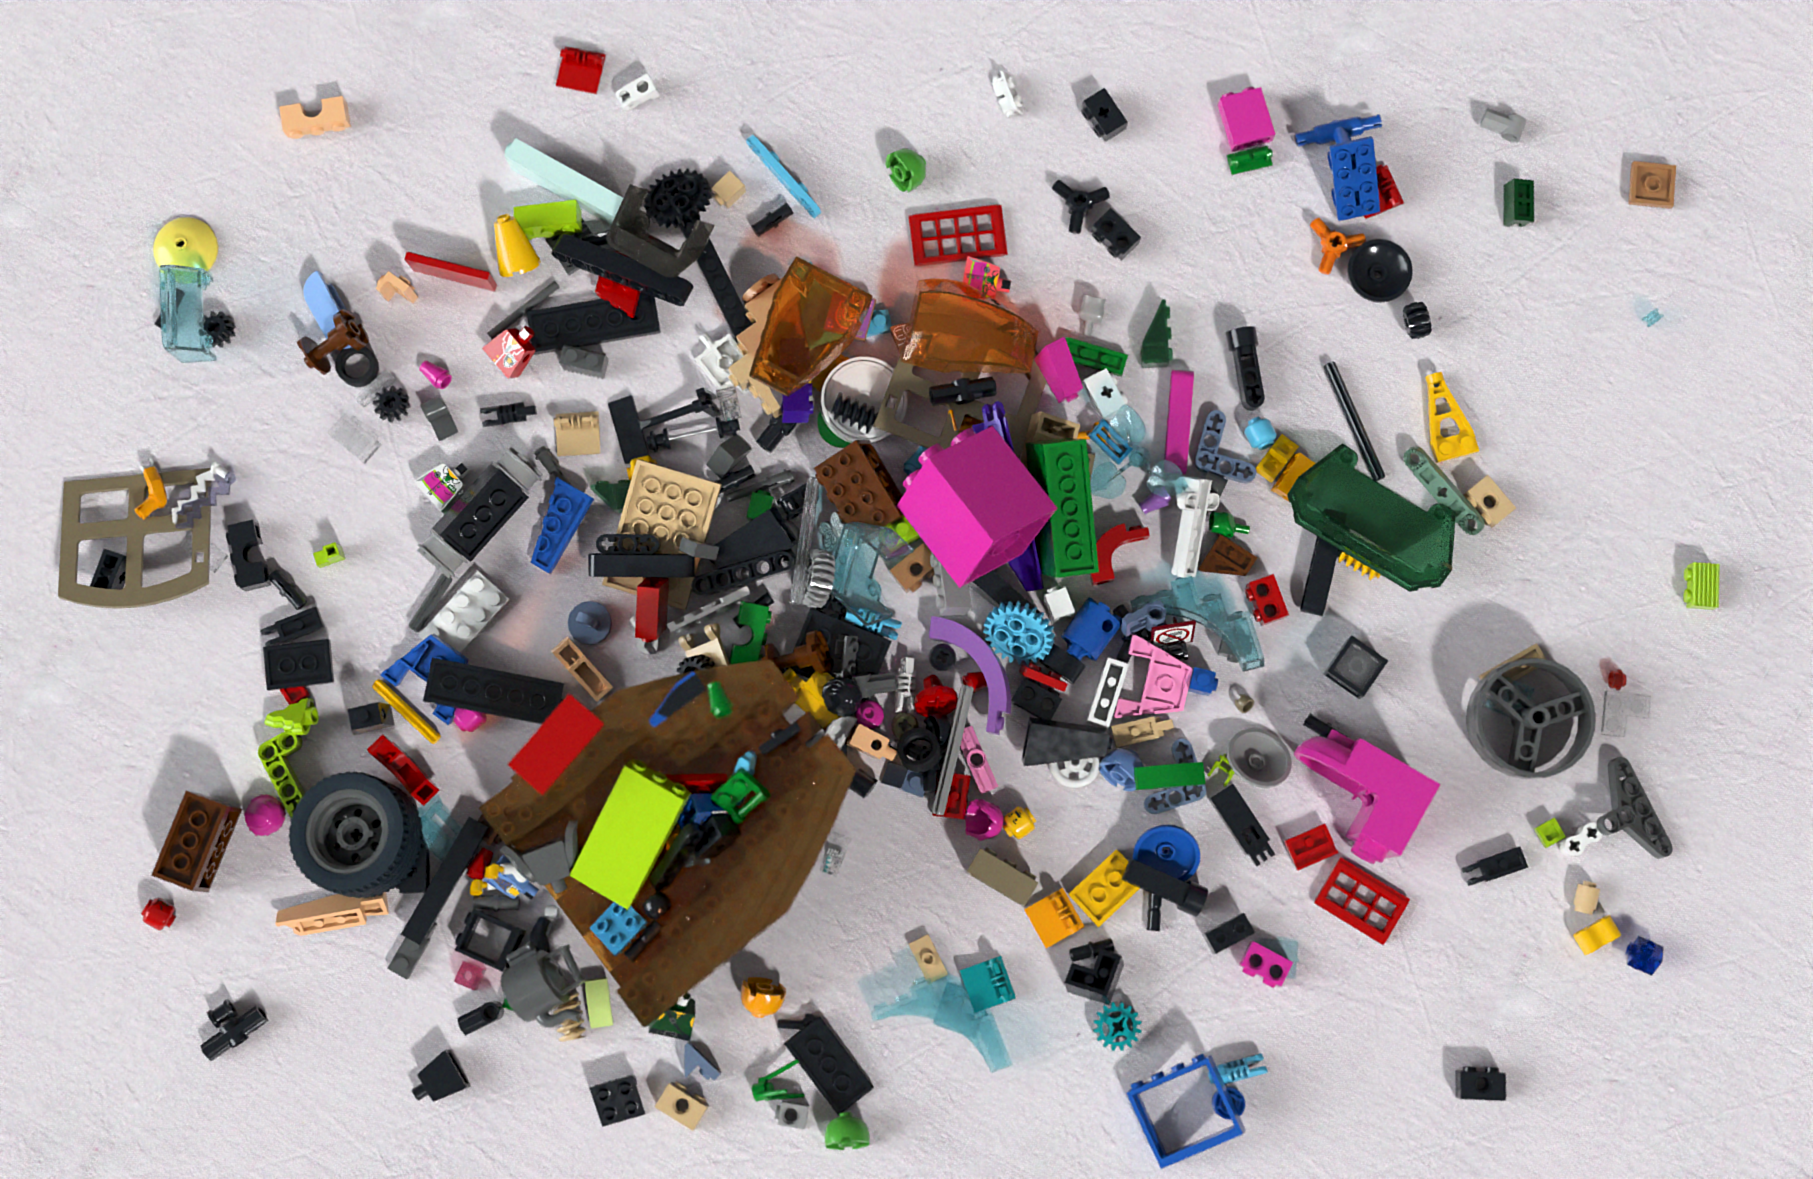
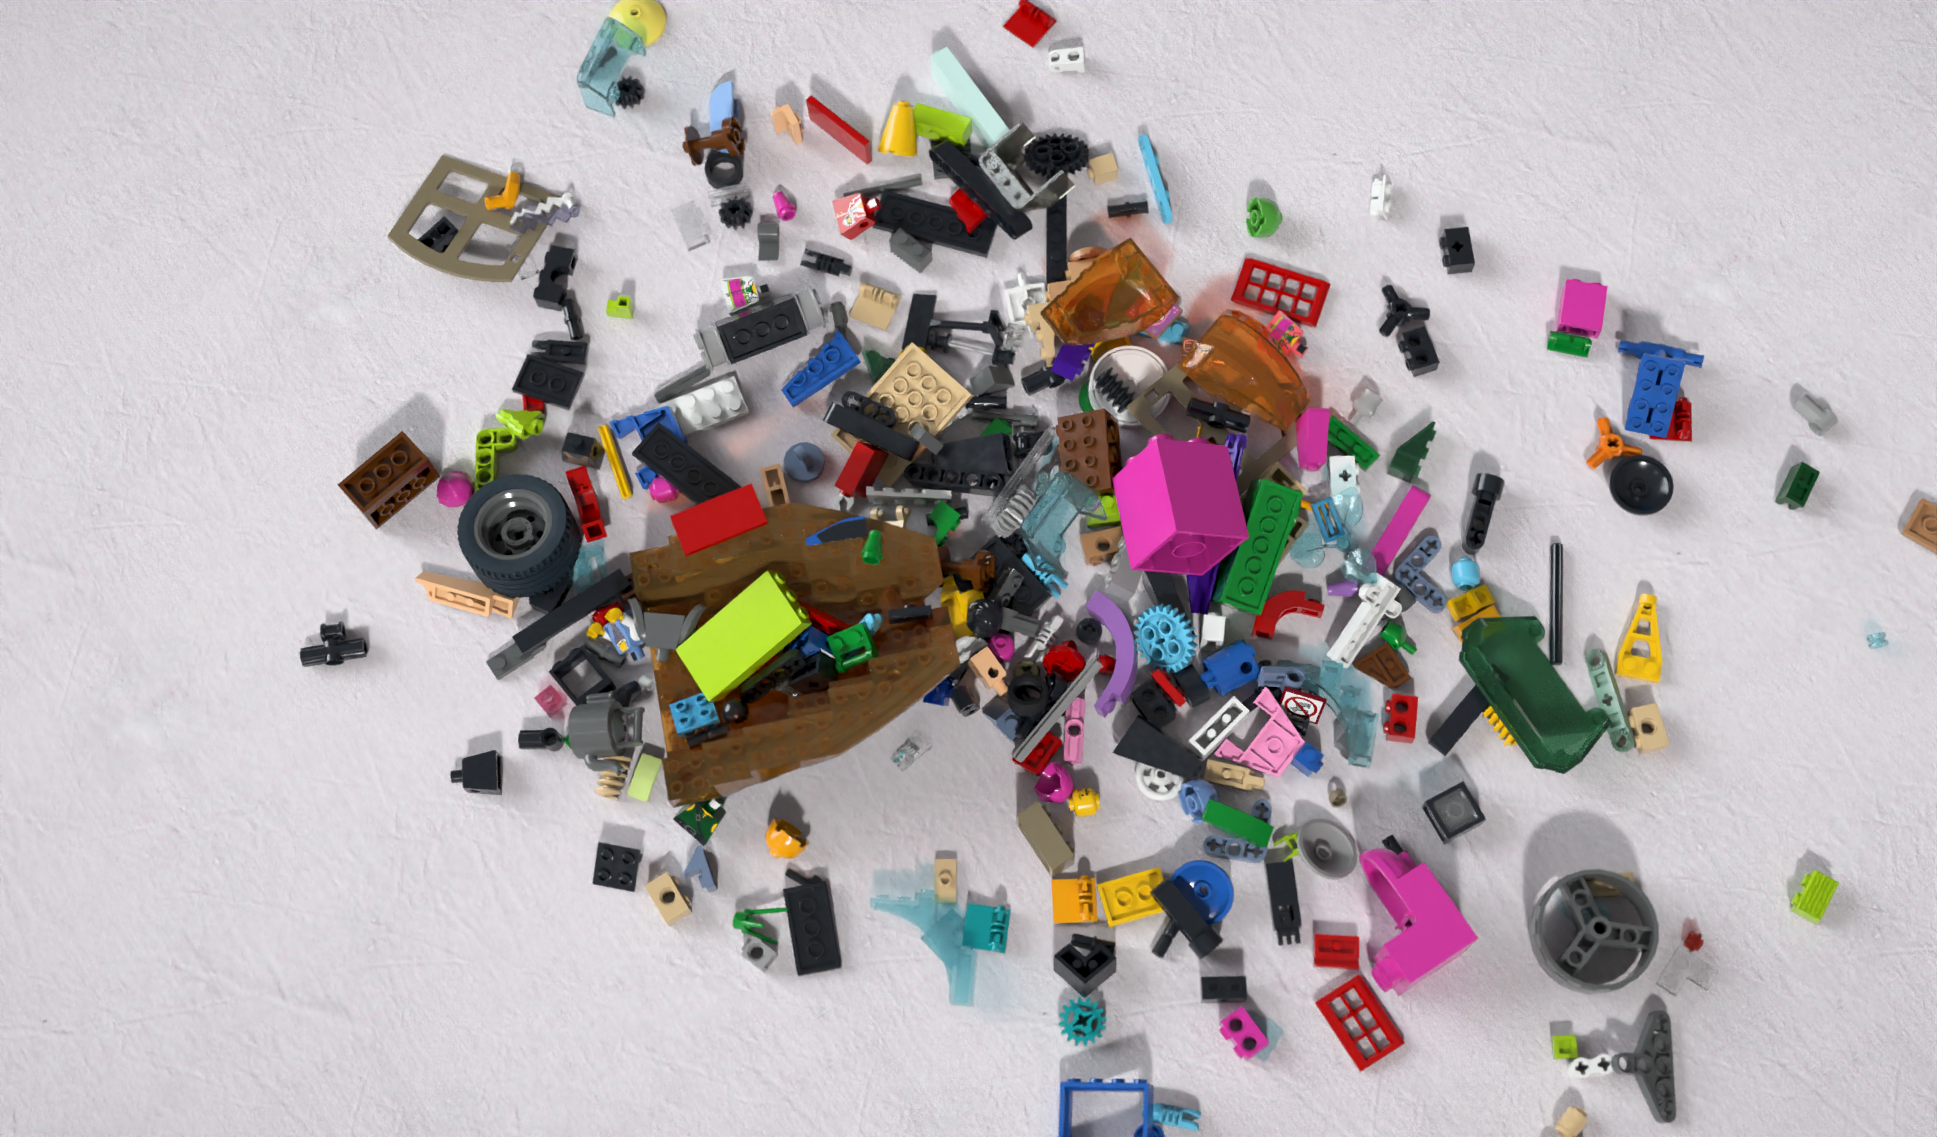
camera: 30 degrees right, 10 degrees down
(158, 913) = (327, 526): red head -> none
(846, 1132) = (796, 991): bright green cylinder -> none
(1417, 320) = (1655, 542): black gear -> none
(1497, 865) = (1501, 1053): black hinge -> none

